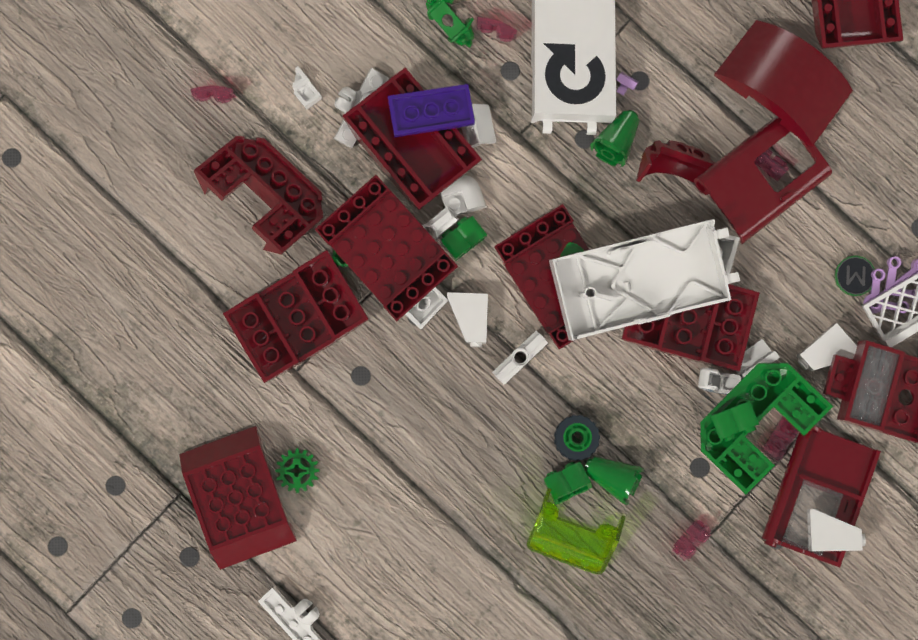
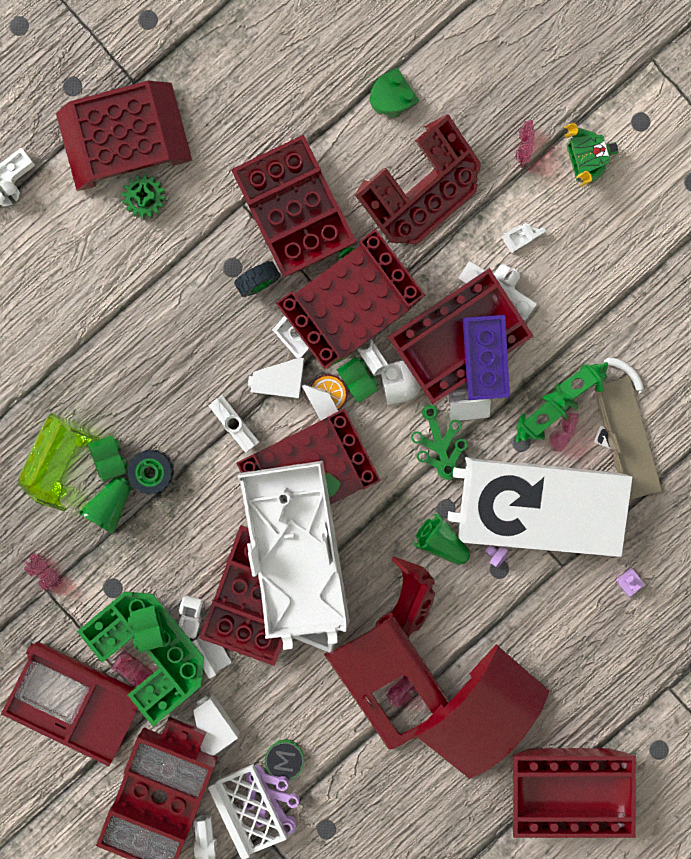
camera: 90 degrees right, 5 degrees up
(174, 230) = (392, 94): none -> green slope
(218, 31) = (588, 153): none -> green torso
(372, 346) = (257, 278): none -> black wheel
(473, 40) = (555, 407): none -> green piece
(480, 266) = (335, 388): none -> light orange tile
(489, 271) = (320, 401): none -> white slope
(521, 150) = (440, 445): none -> green plant
(831, 534) = (29, 711): white slope -> none

